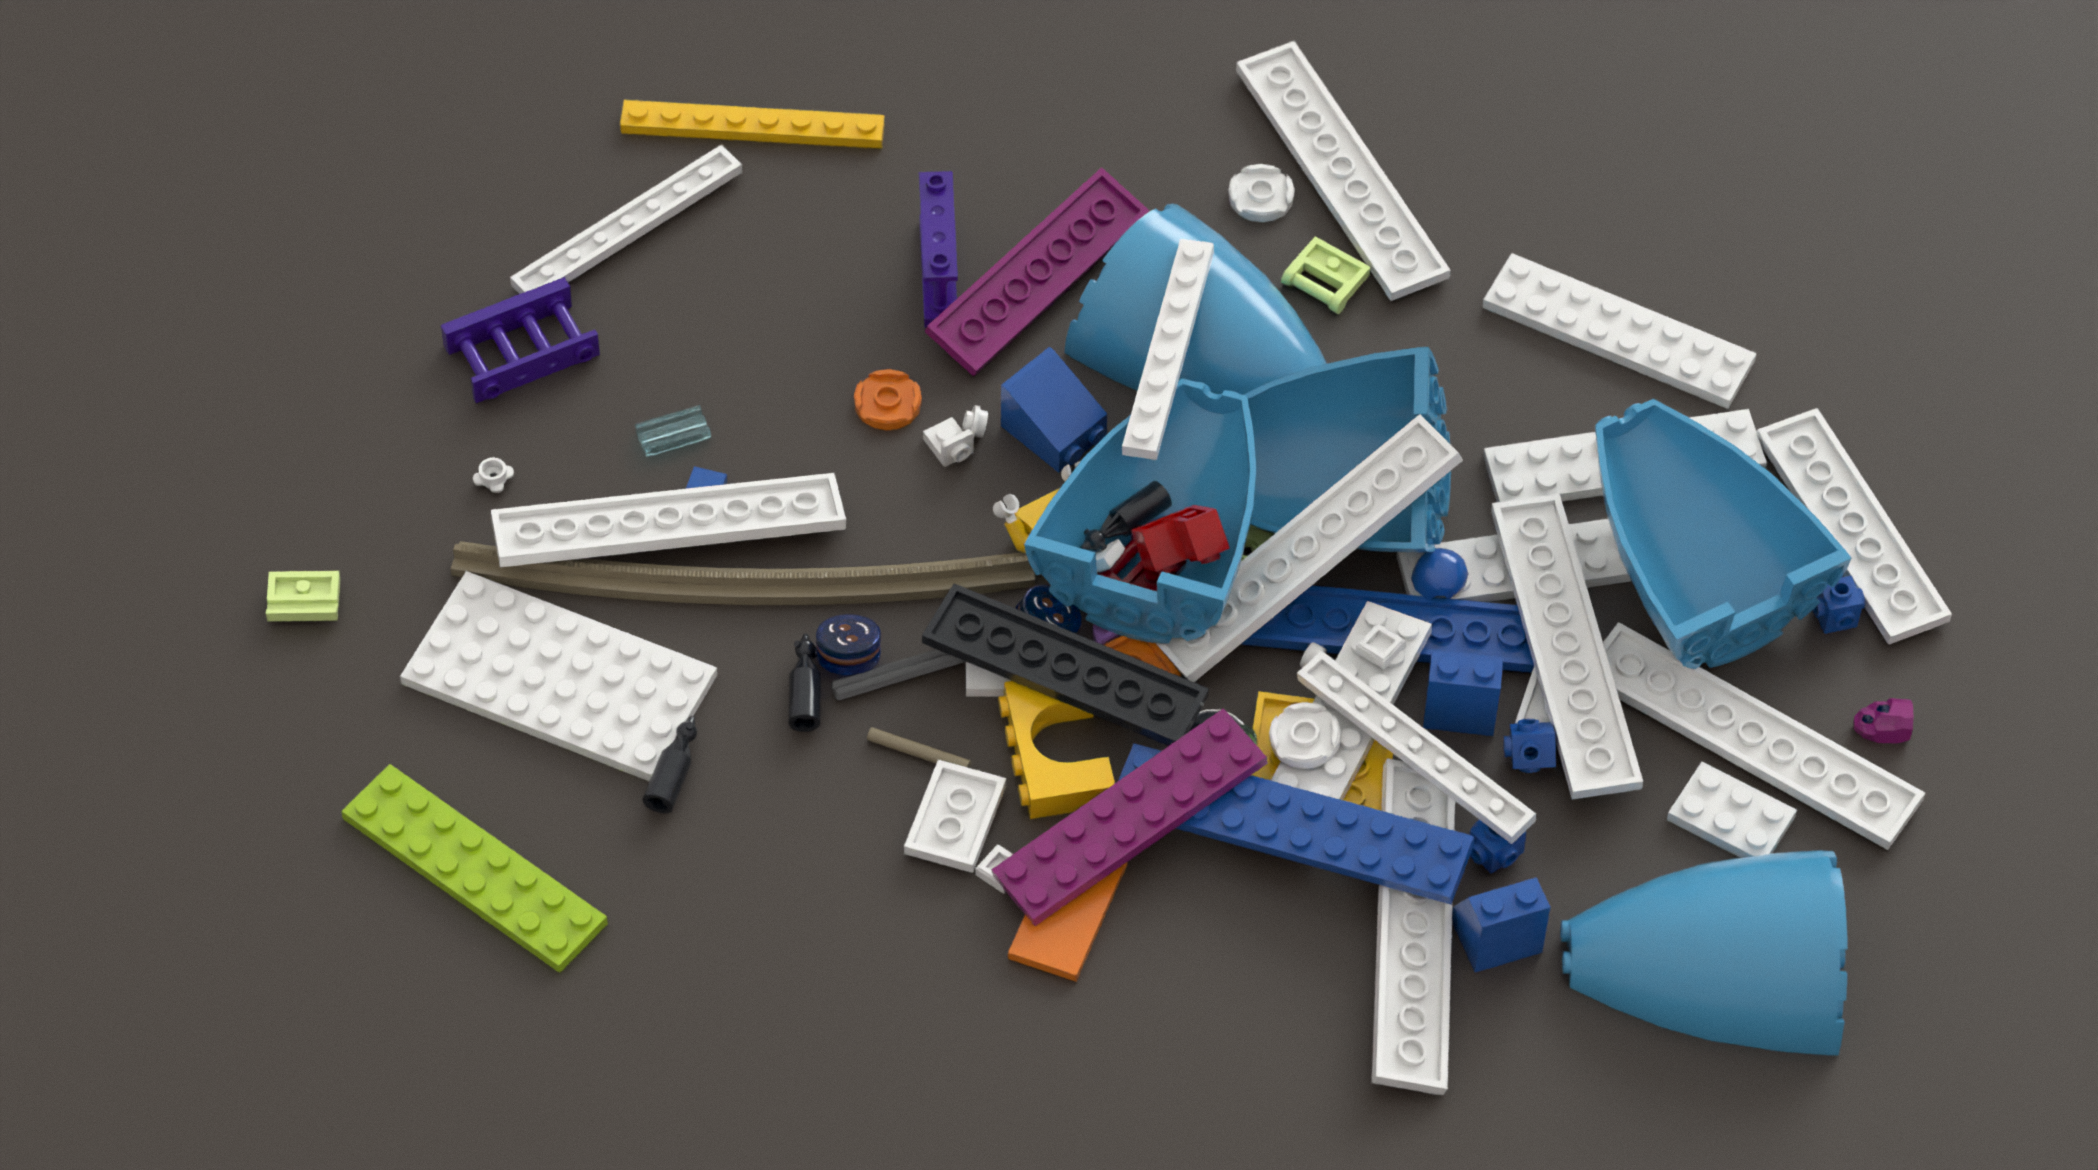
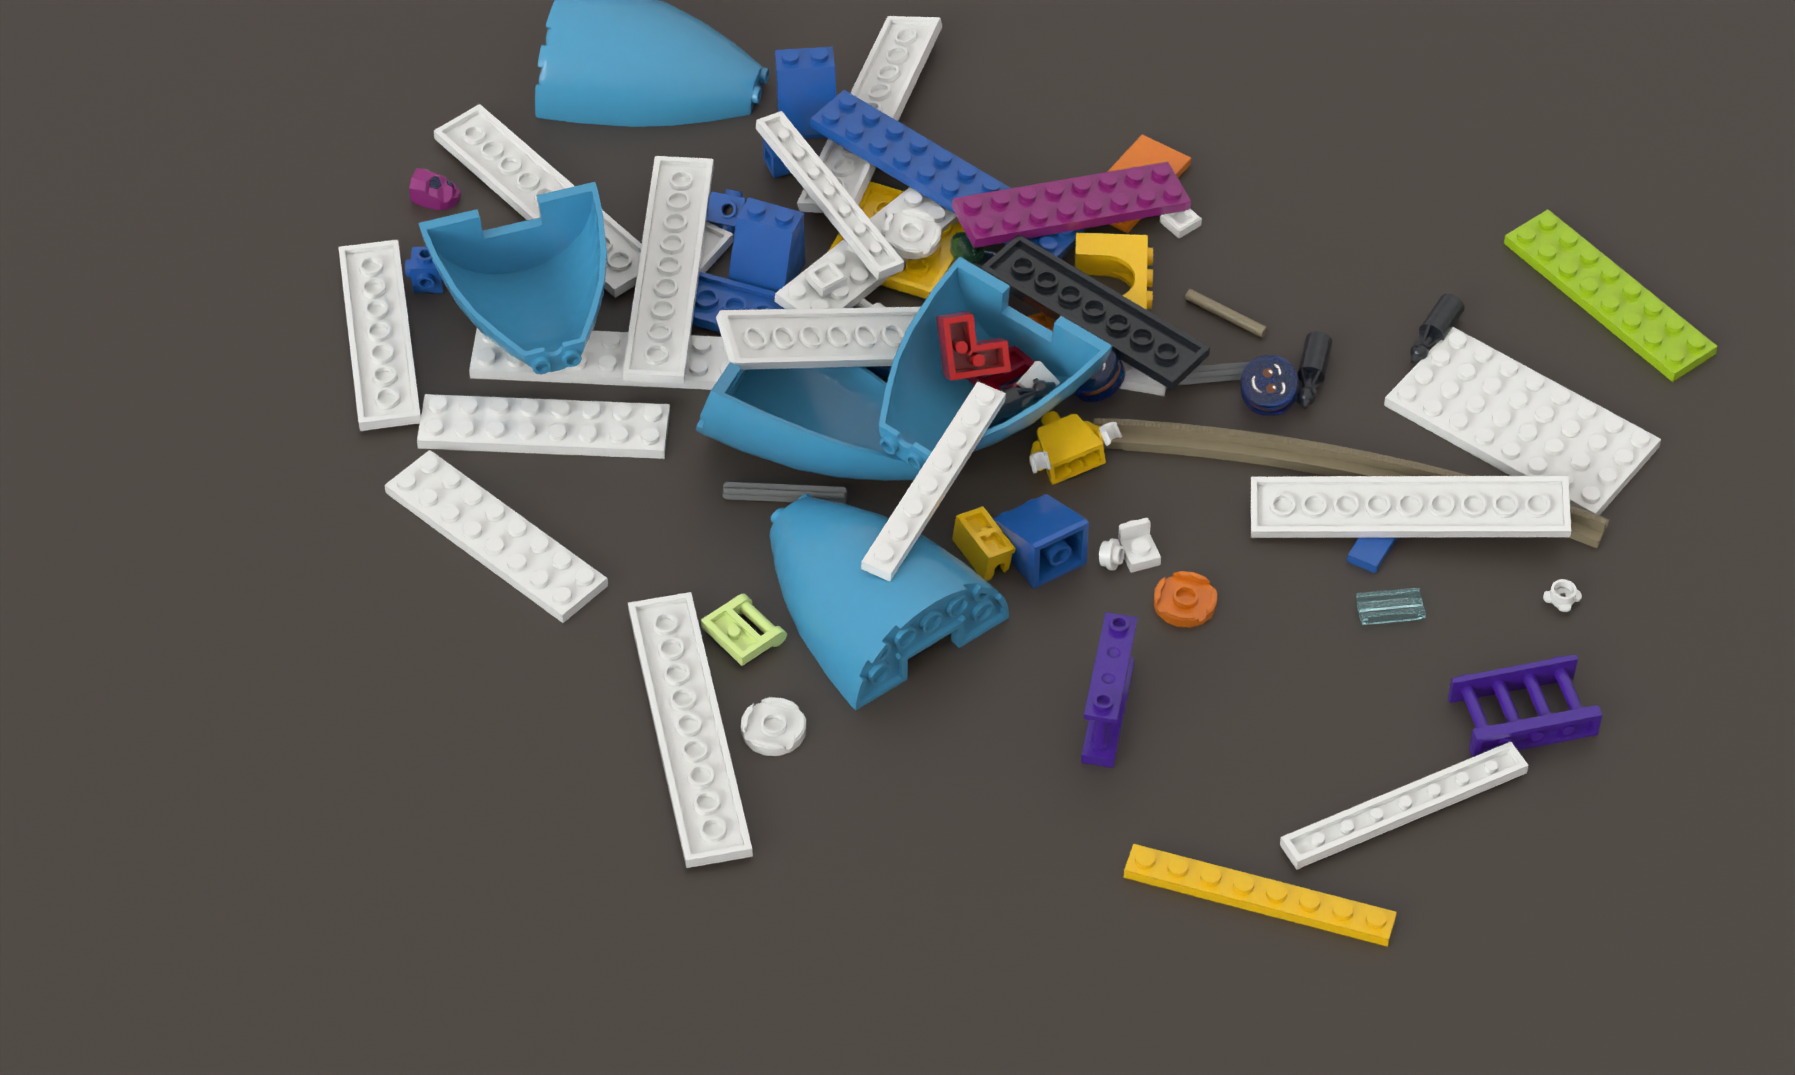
camera: 165 degrees left, 5 degrees down
(303, 596) = (1743, 519): yellowish green plate -> none
(955, 816) = (1208, 255): white plate -> none
(1036, 272) = (1004, 679): magenta plate -> none
(1110, 394) = (982, 542): none -> yellow hinge
(1731, 813) = (588, 154): white plate -> none

